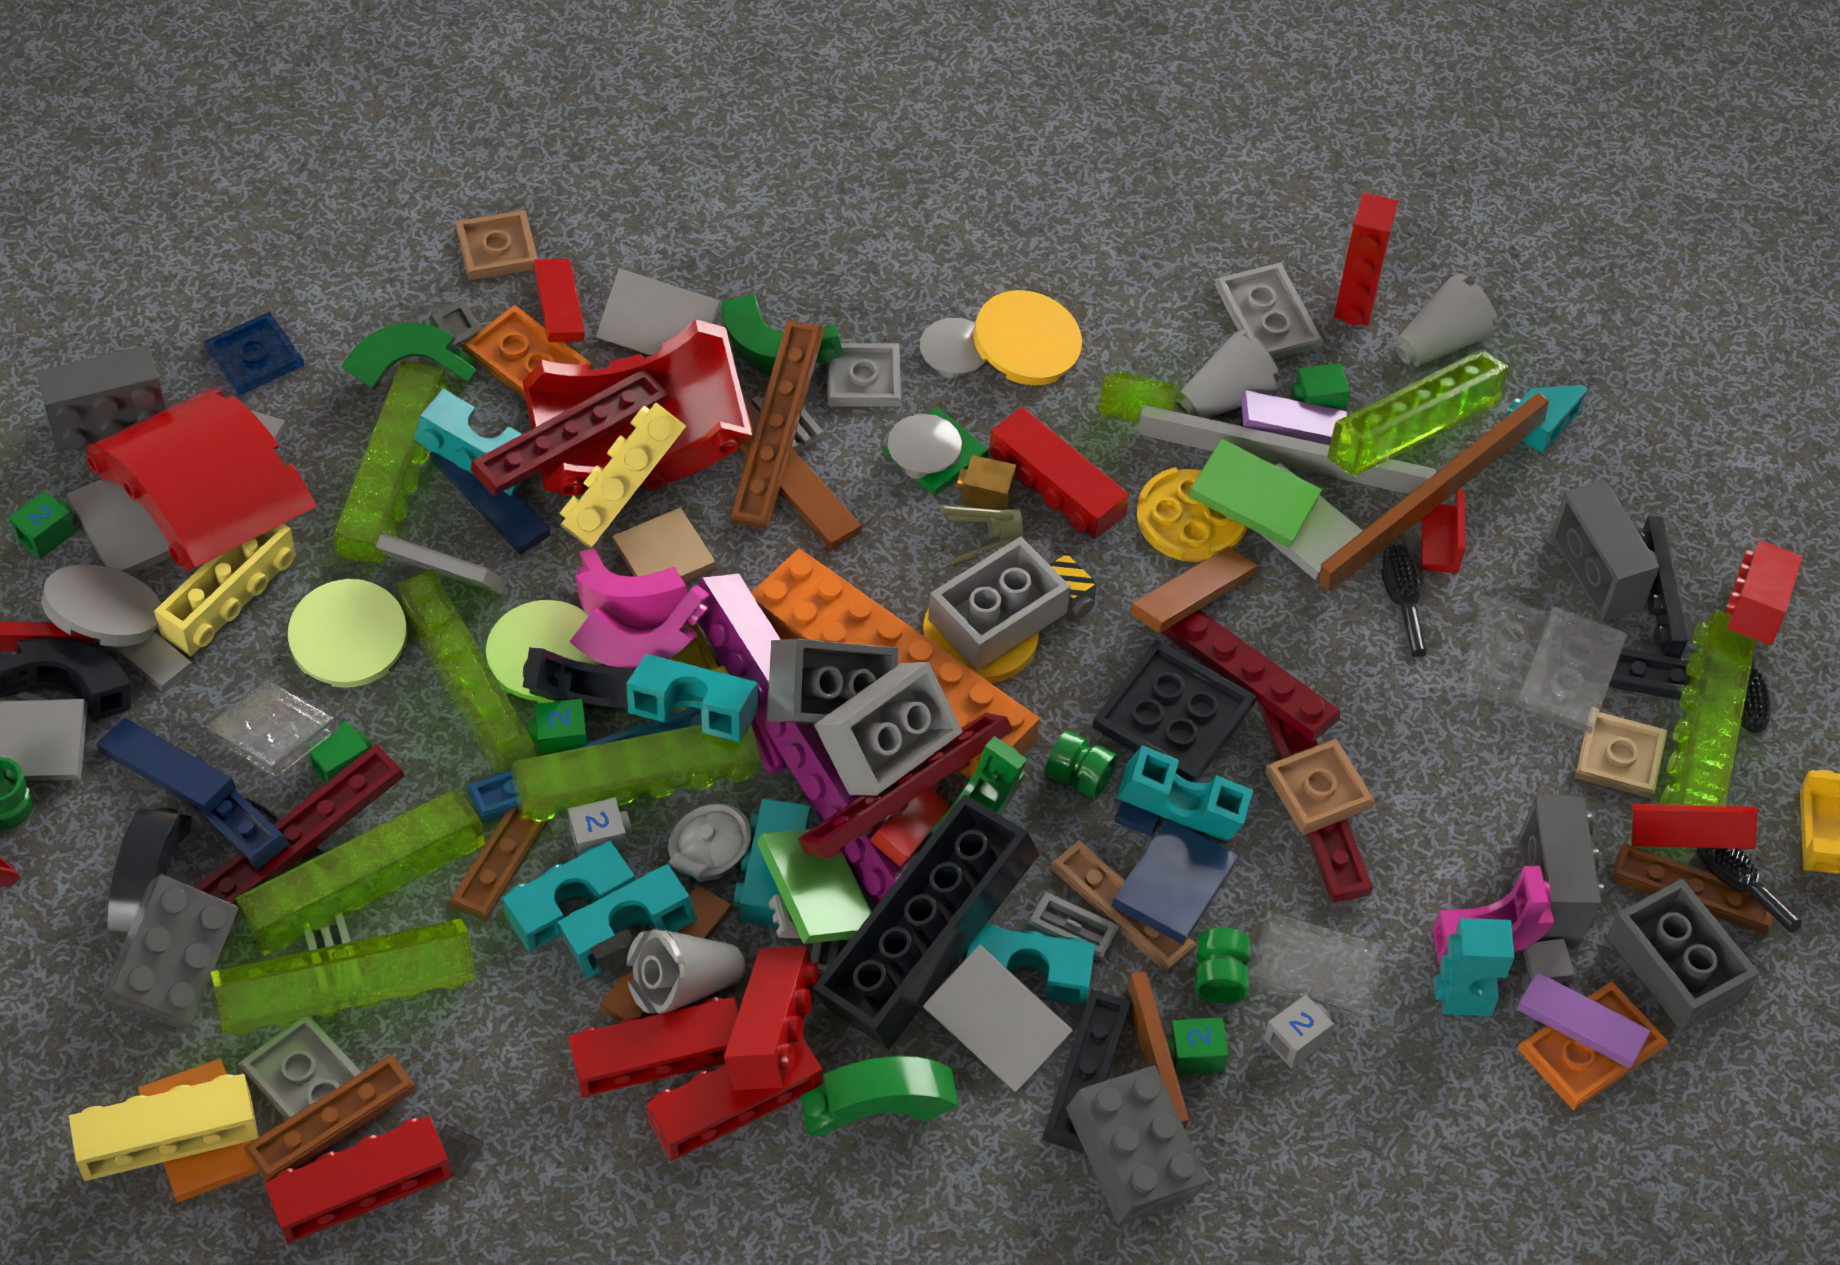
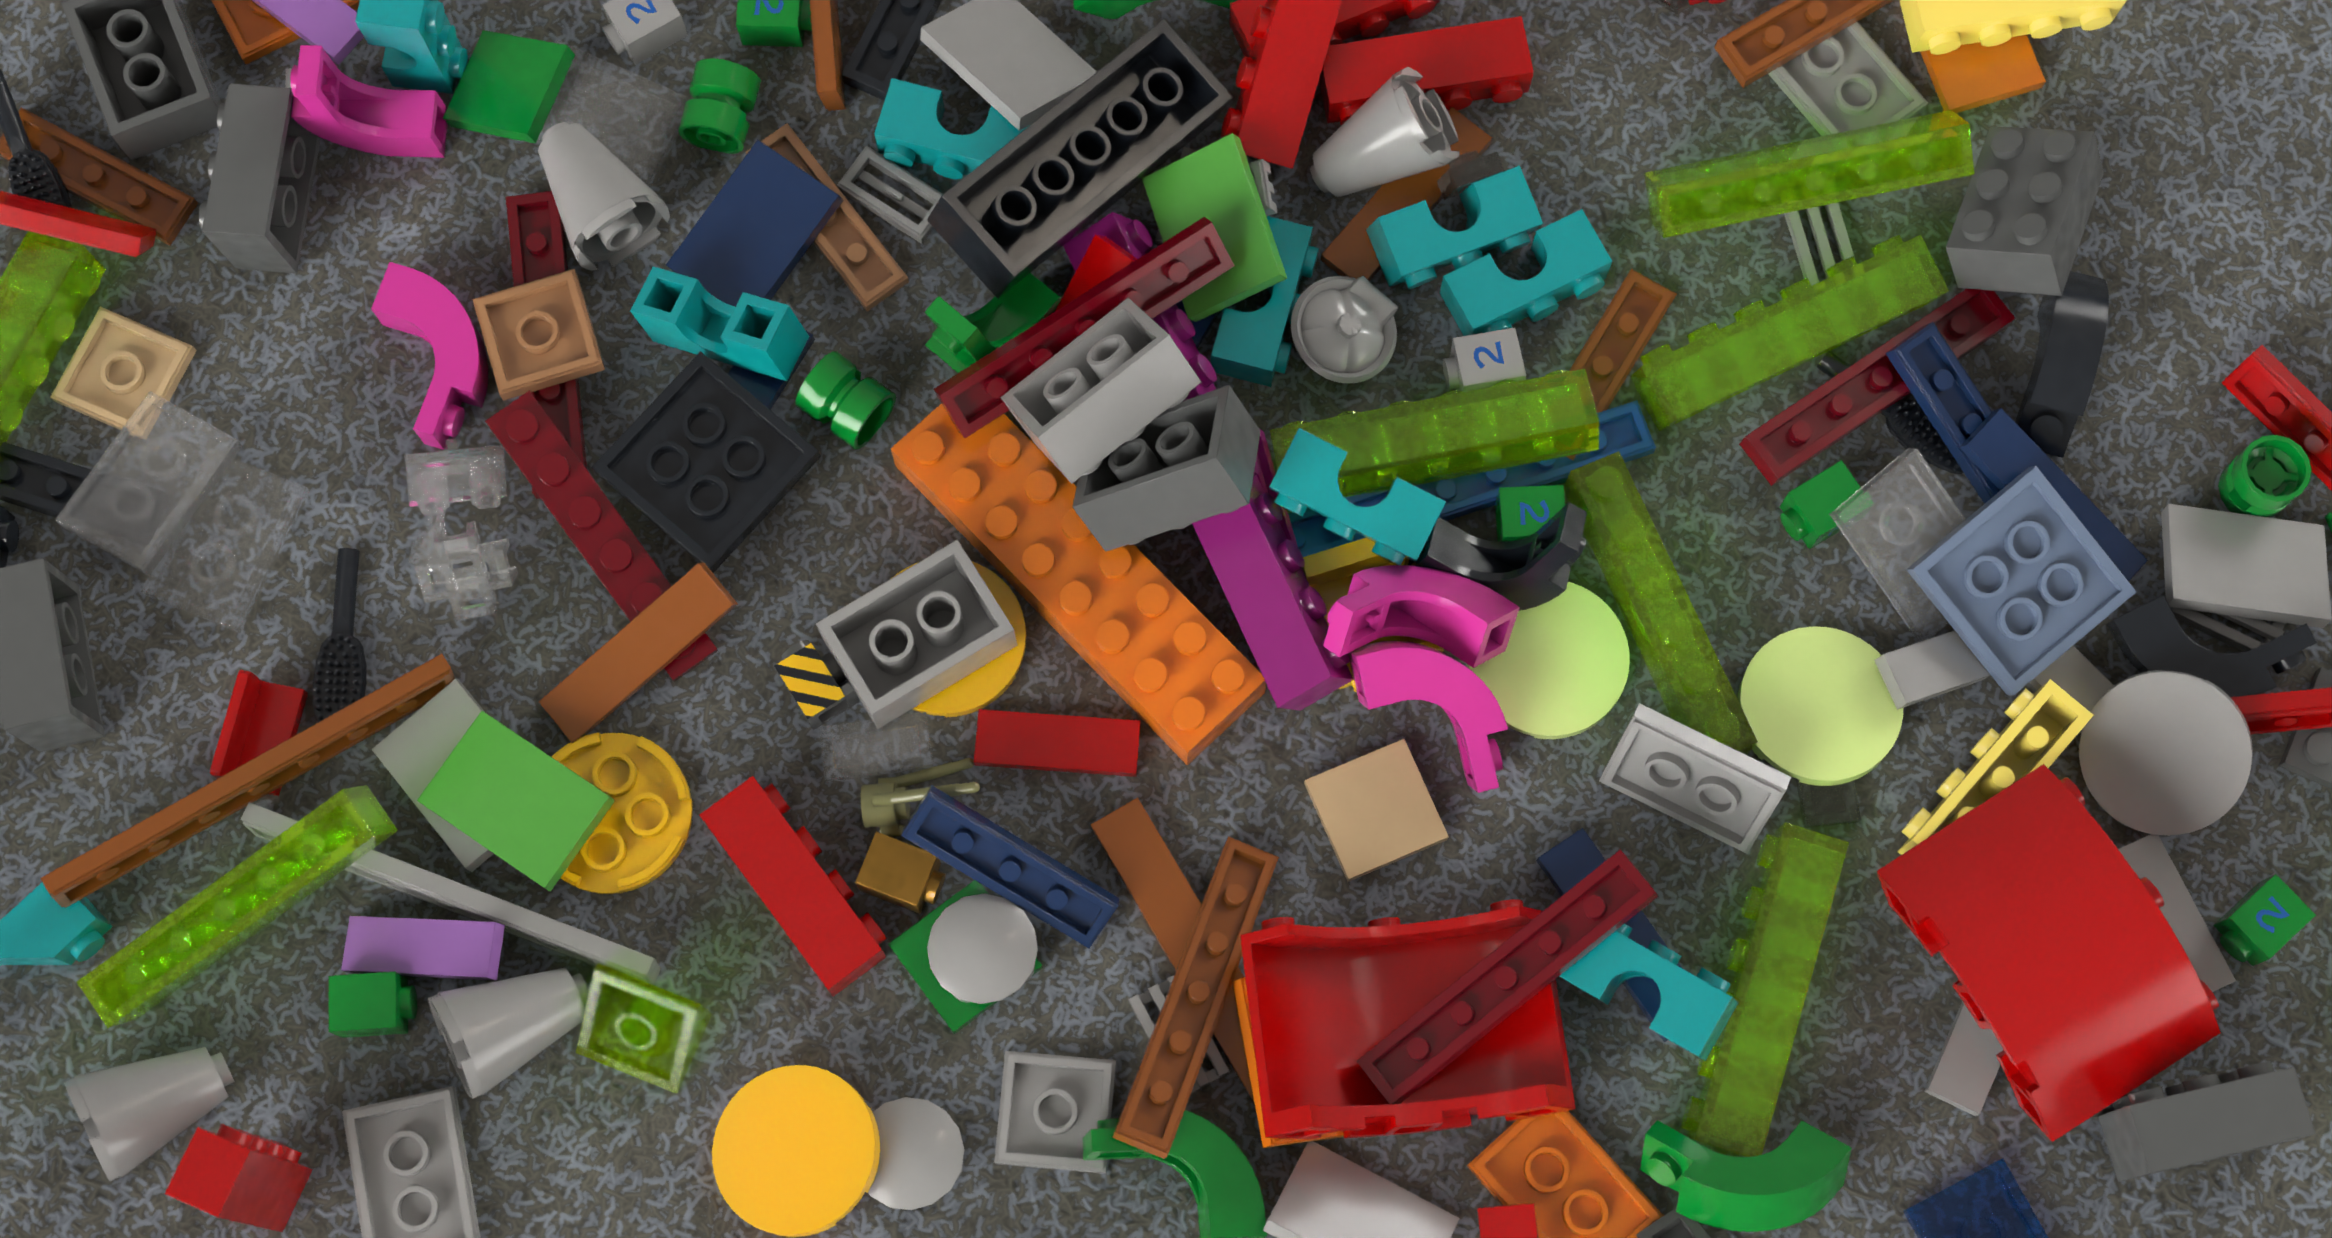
camera: 170 degrees left, 20 degrees up
(196, 703) = (2021, 580): none -> sand blue plate
(263, 659) = (1929, 669): none -> light grey tile
(617, 482) = (1432, 889): light yellow brick -> none
(894, 573) = (1057, 743): none -> red tile
(913, 483) = (1010, 867): none -> dark blue tile
(1300, 881) = (599, 199): none -> light grey cone
(1330, 631) = (437, 552): none -> clear piece
(1369, 682) = (456, 476): none -> clear hips
(1393, 971) = (509, 86): none -> green tile
(1399, 800) = (427, 309): none -> dark pink arch

